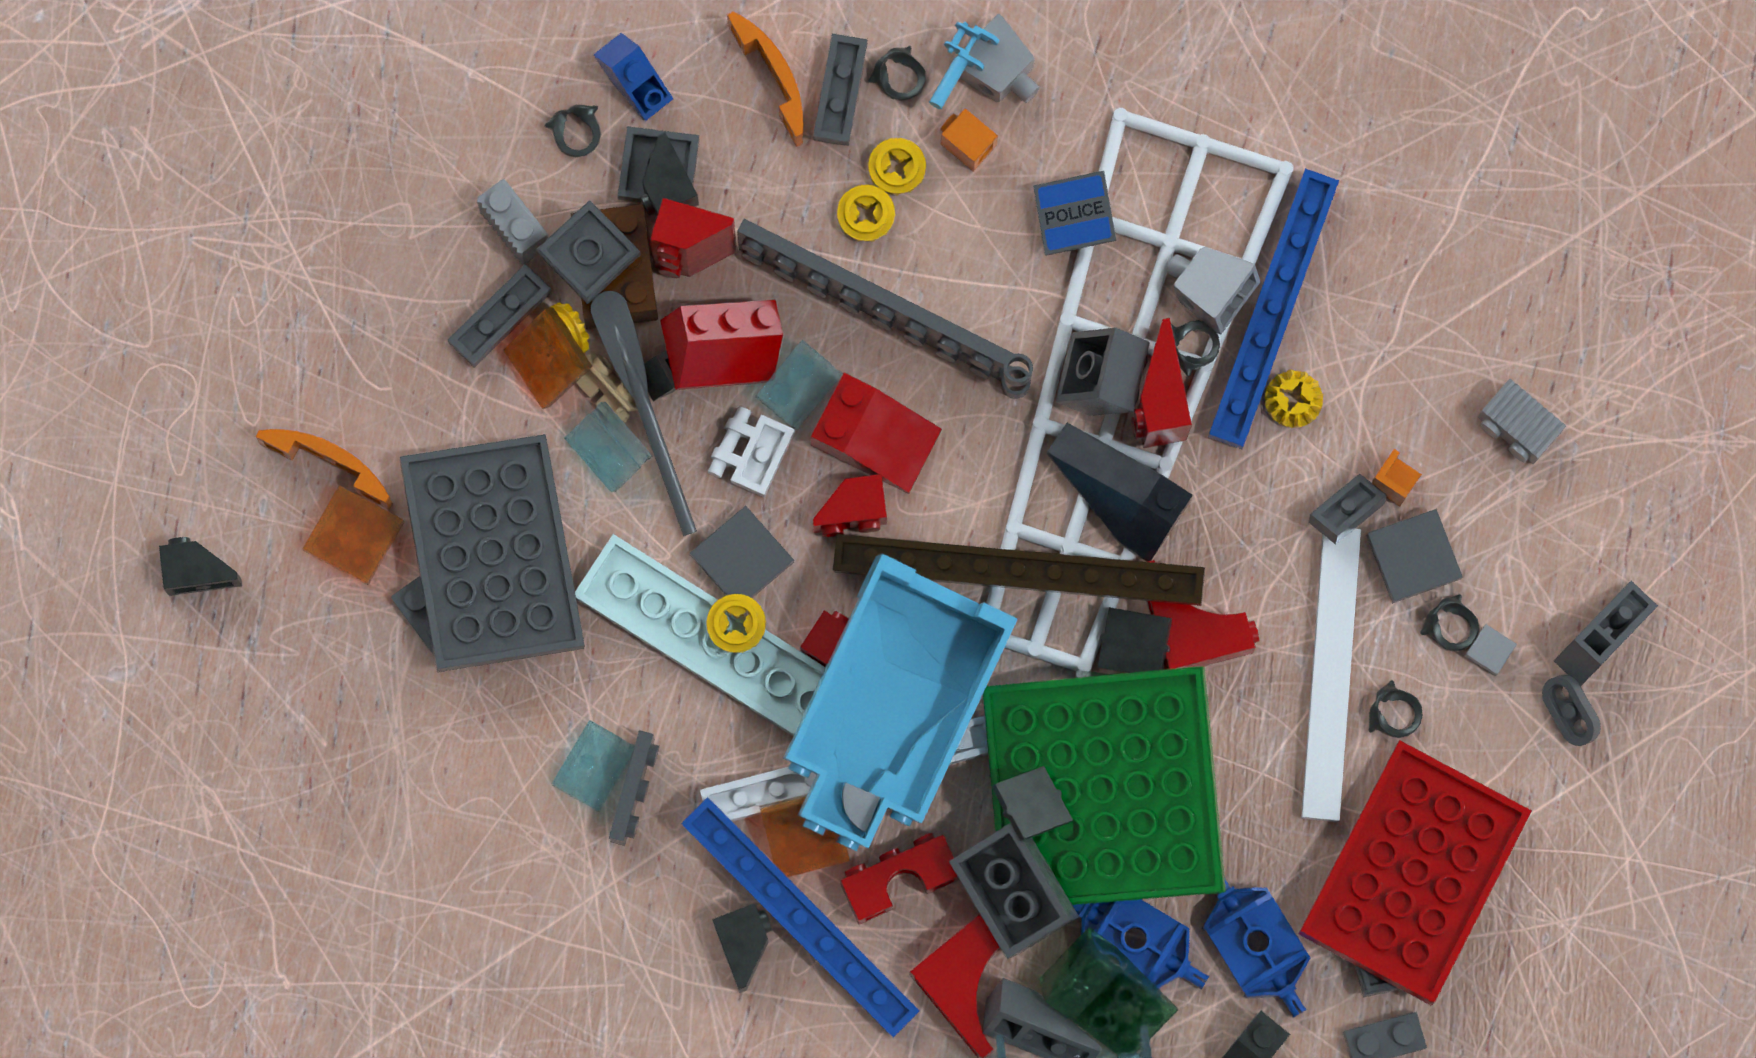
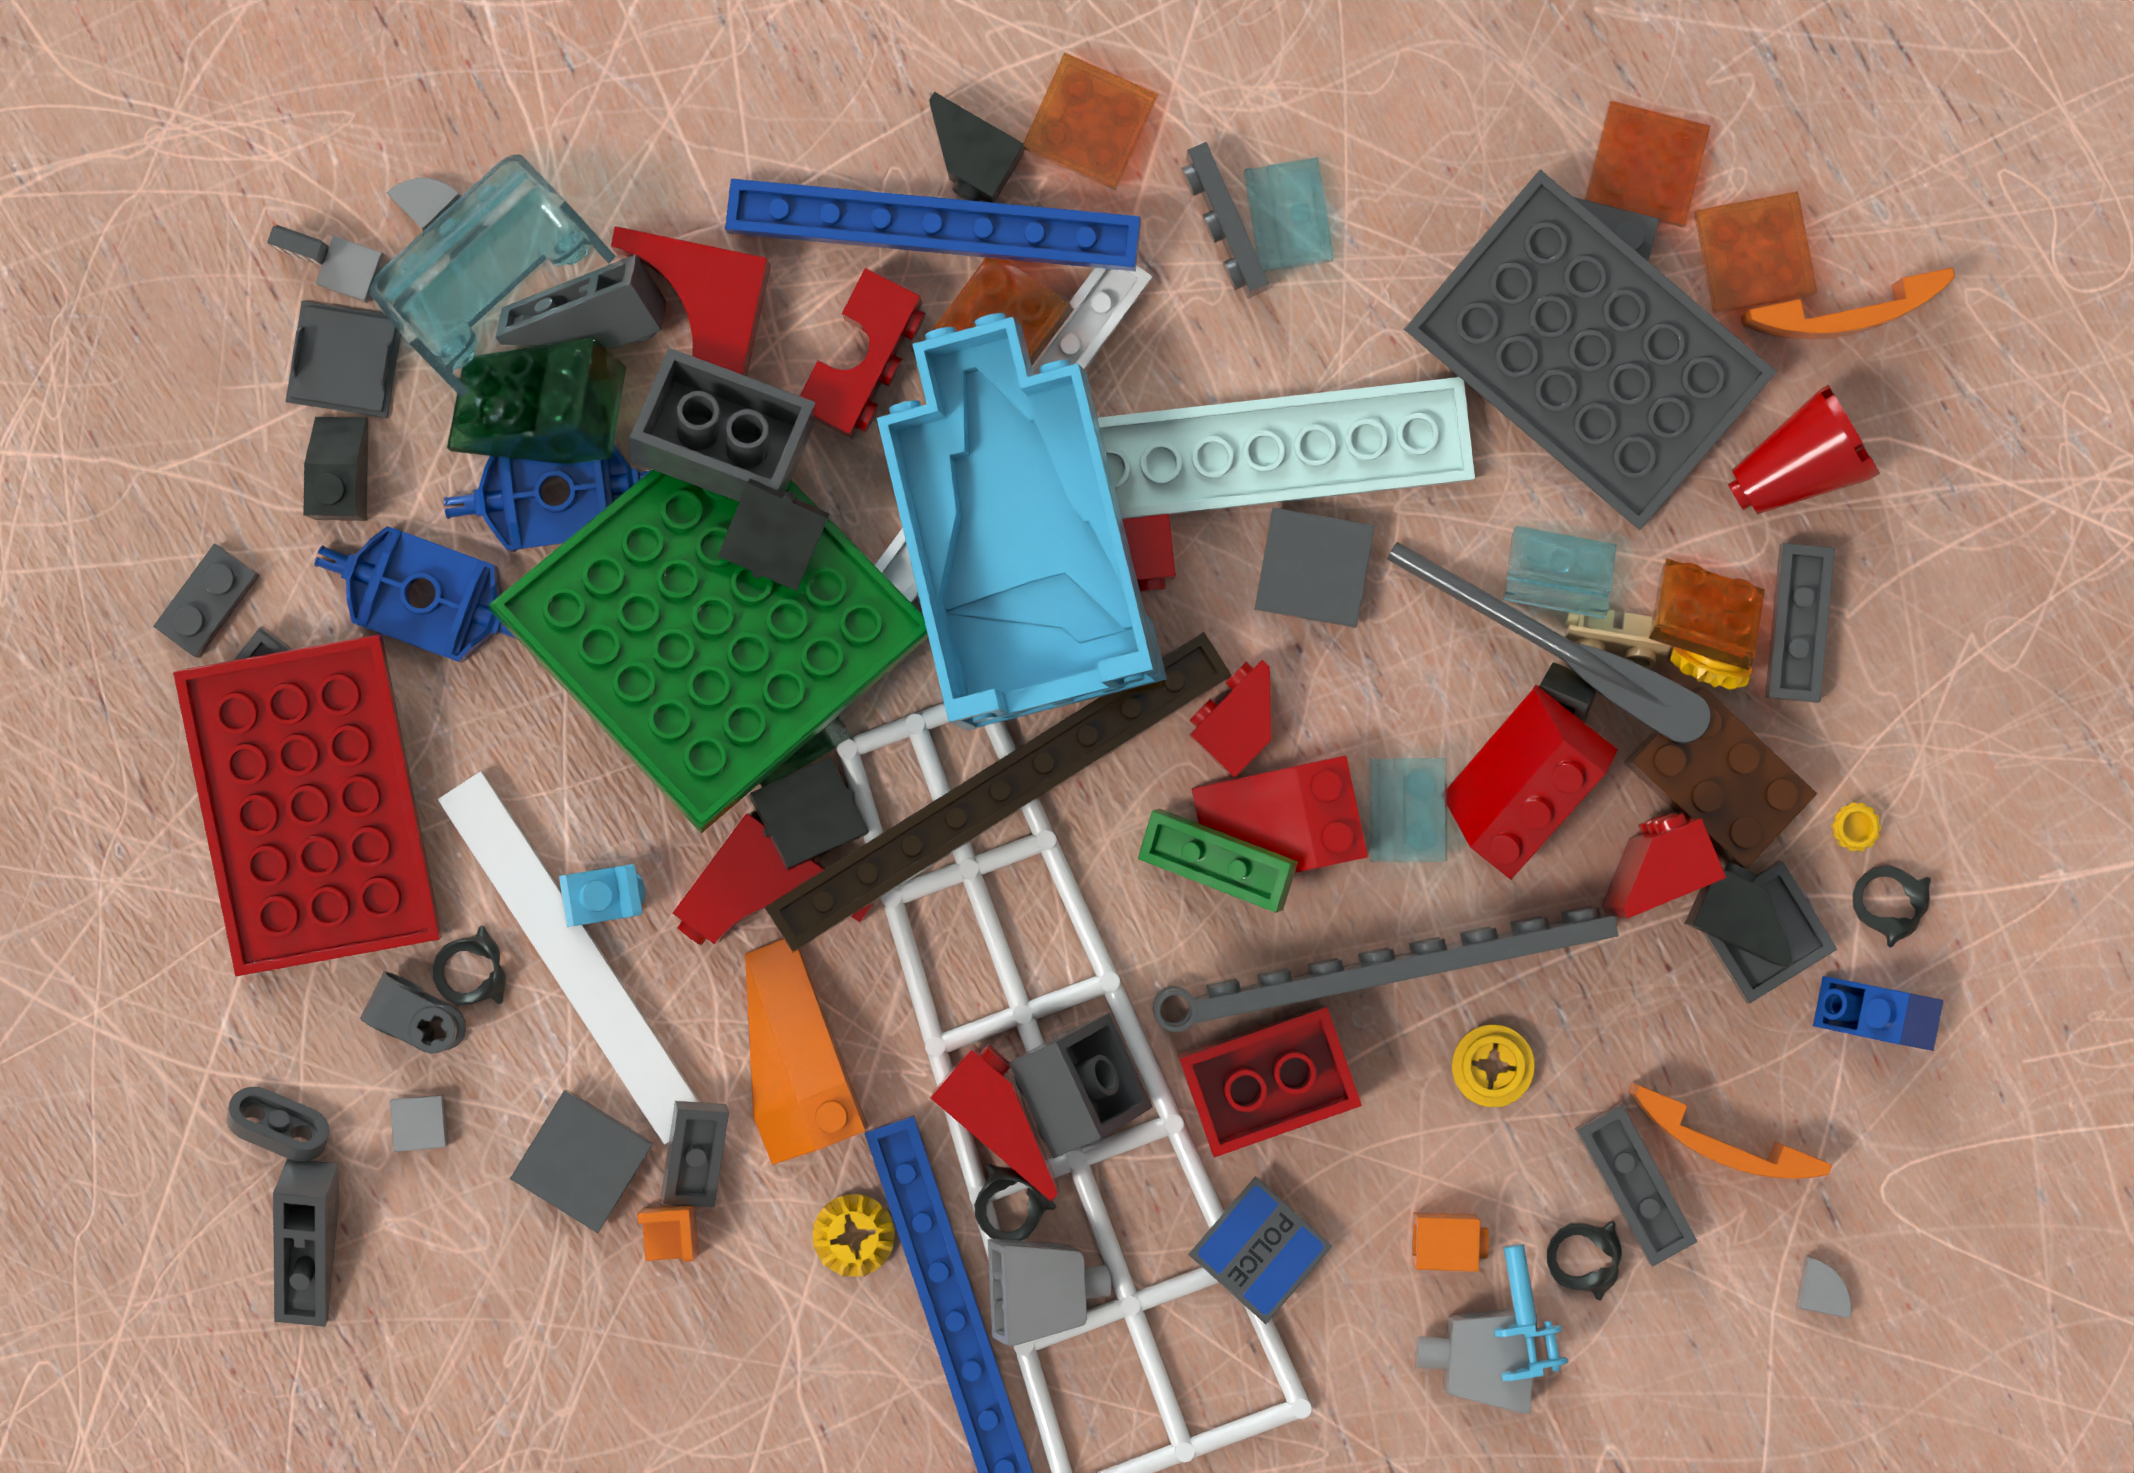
camera: 145 degrees right, 10 degrees up
(193, 568) = (1899, 76): pearl dark grey slope -> none
(371, 634) = (1647, 163): none -> clear orange tile
(423, 400) = (1803, 458): none -> red cone
(512, 221) = (1873, 738): light grey brick -> none
(562, 183) = (1855, 827): none -> yellow piece
(588, 252) = (1760, 759): dark grey plate -> none
(663, 906) = (1090, 121): none -> clear orange tile
(736, 606) = (1279, 470): yellow gear -> none
(761, 456) = (1386, 700): white plate -> none
(859, 805) = (962, 386): light grey tile -> none
(903, 151) = (1510, 1170): yellow gear -> none
(927, 438) = (1217, 860): none -> green plate
(996, 298) = (1269, 1080): none -> red brick
(1125, 494) = (950, 970): black wedge -> none
(1256, 508) = (797, 1072): none -> orange wedge
(1287, 692) = (602, 895): none -> medium azure bracket
(1449, 714) = (405, 1011): none -> dark grey piece
(1454, 605) = (500, 1097): pearl dark grey piece -> none
(1520, 422) = (580, 1408): light grey brick -> none

